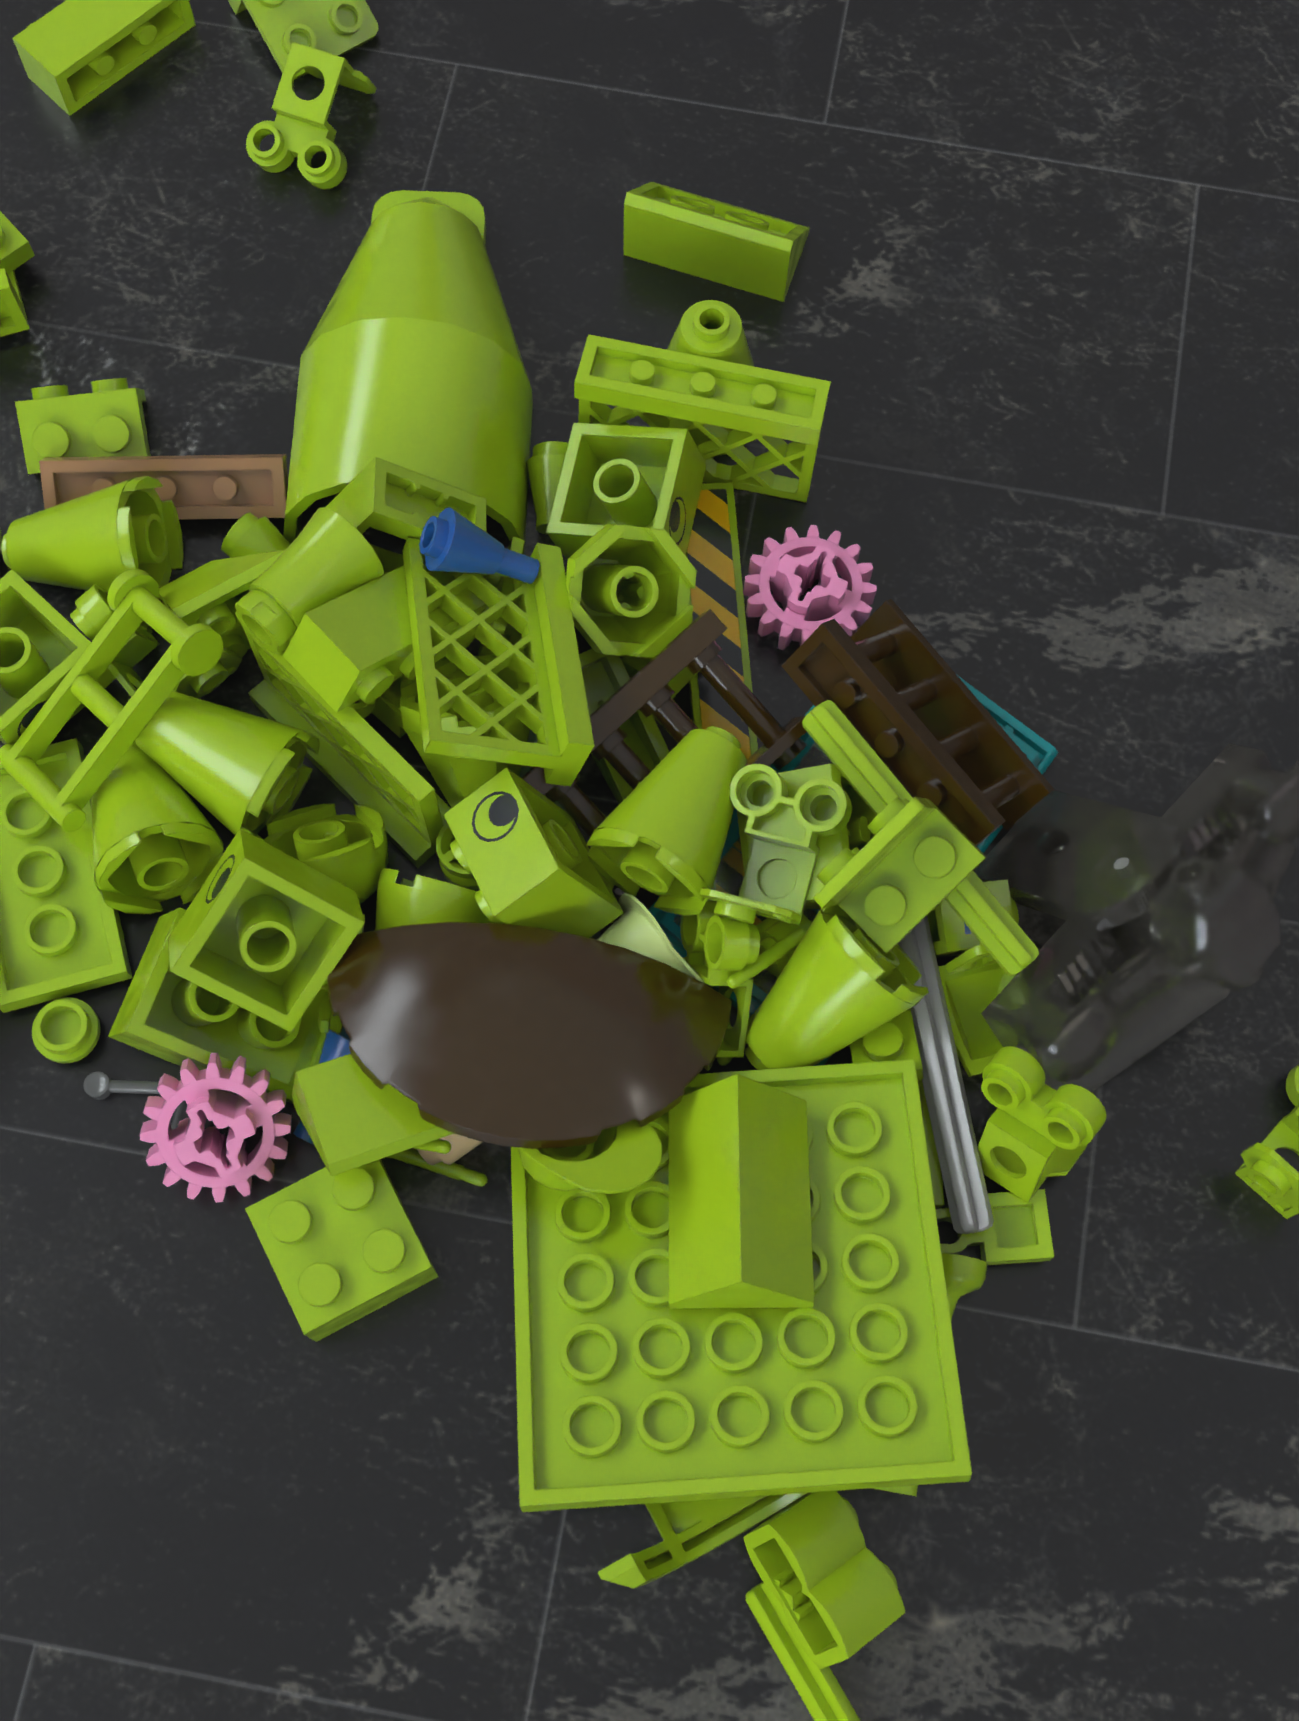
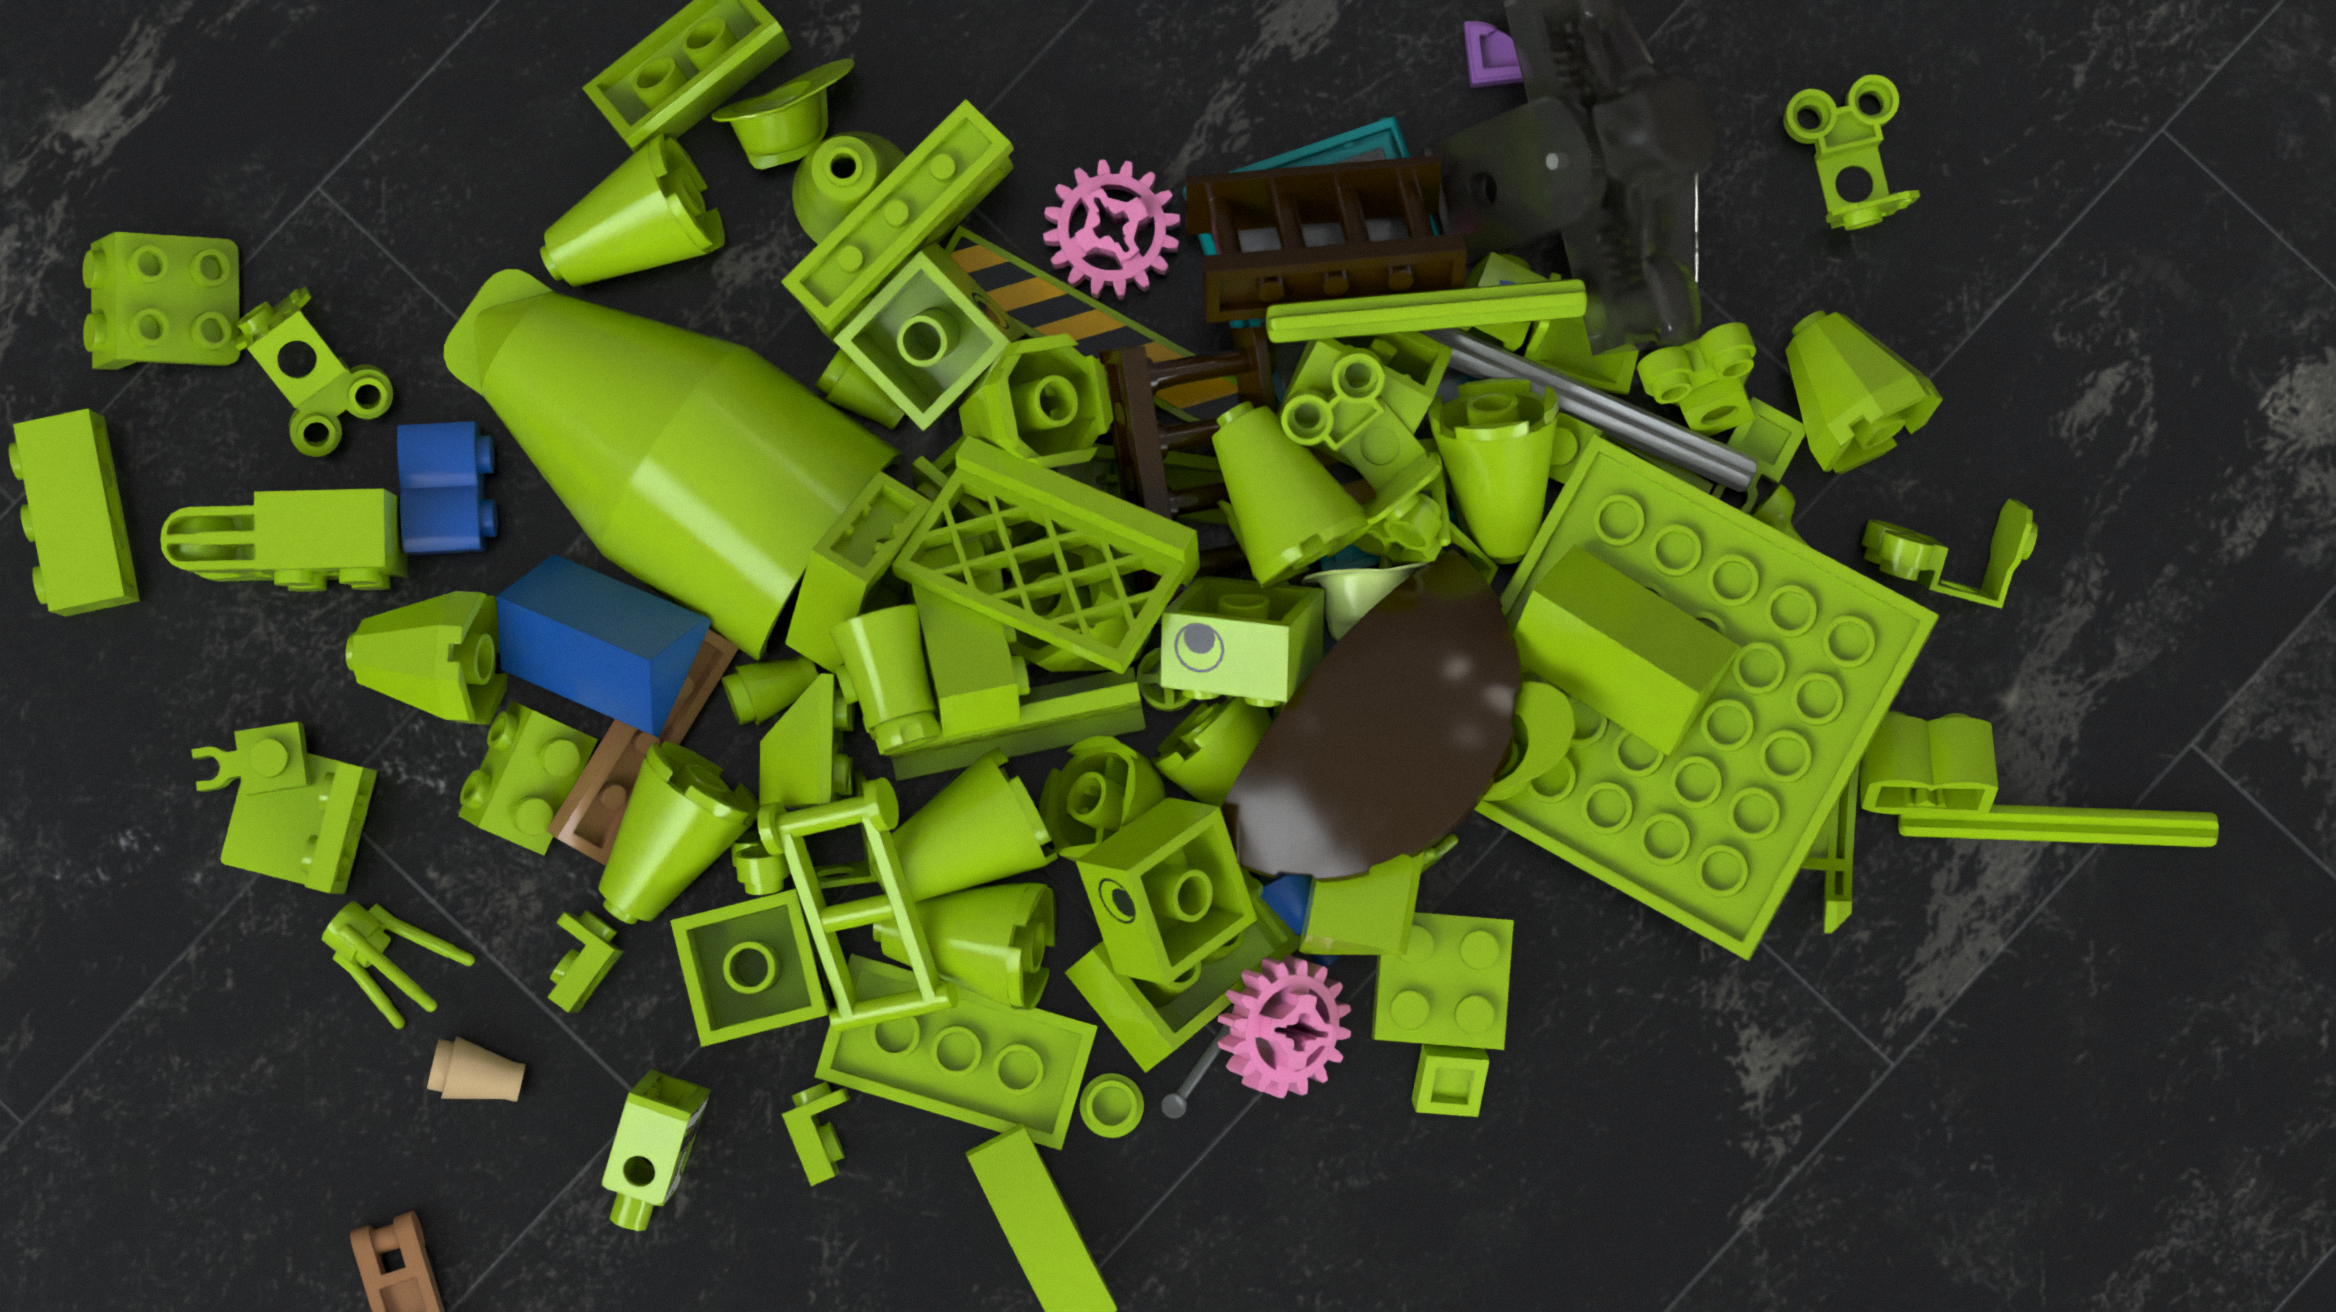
camera: 50 degrees left, 15 degrees up
(143, 311) = (434, 656): none -> lime cone
(172, 159) = (293, 539): none -> lime brick
(222, 404) = (598, 641): none -> blue slope
(253, 1311) = (1450, 1080): none -> lime plate
(279, 246) = (444, 488): none -> blue brick
(460, 546) = (933, 529): blue cone -> none
(579, 253) = (635, 219): none -> lime cone
(754, 311) = (785, 120): none -> lime piece
(900, 871) = (1456, 351): lime bracket -> none
(1006, 1418) = (1922, 557): none -> lime piece
(1112, 1279) = (1854, 391): none -> lime cone
(1160, 790) = (1490, 55): none -> medium lavender tile

